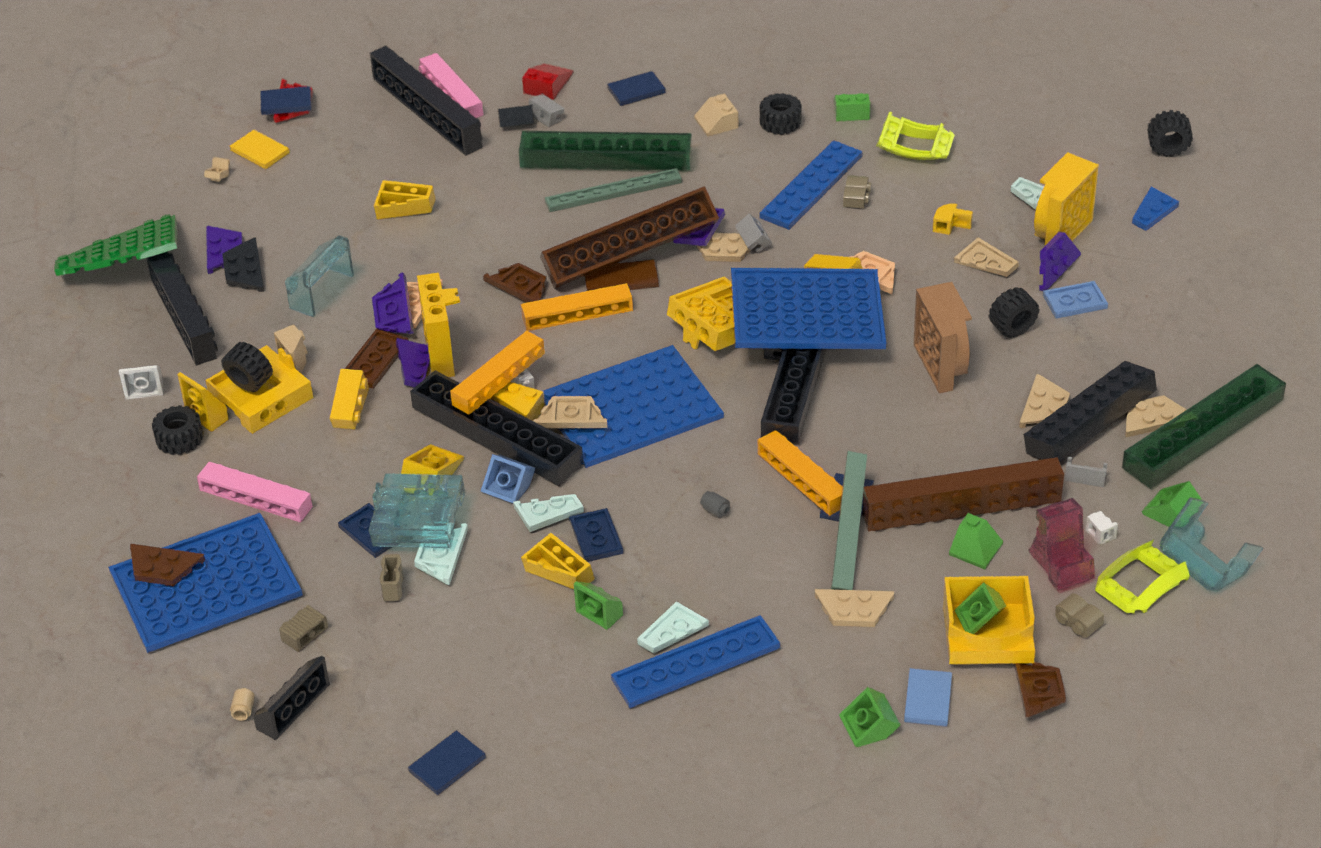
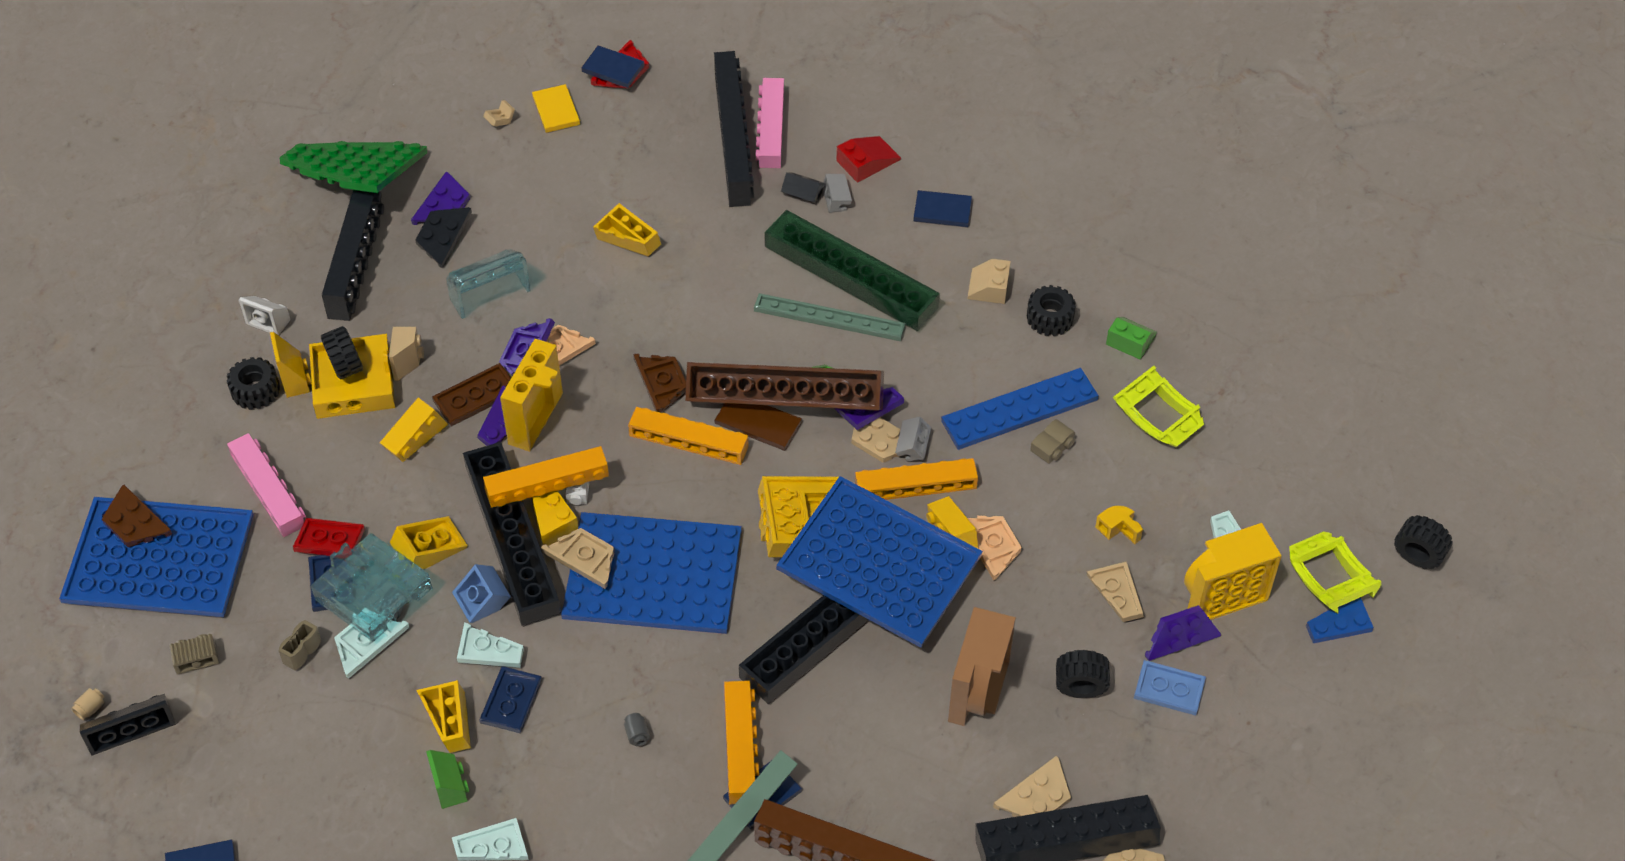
camera: 30 degrees right, 10 degrees up
(343, 501) = (327, 536): none -> red tile
(790, 250) = (919, 479): none -> light orange brick
(1145, 179) = (1360, 584): none -> neon yellow wedge

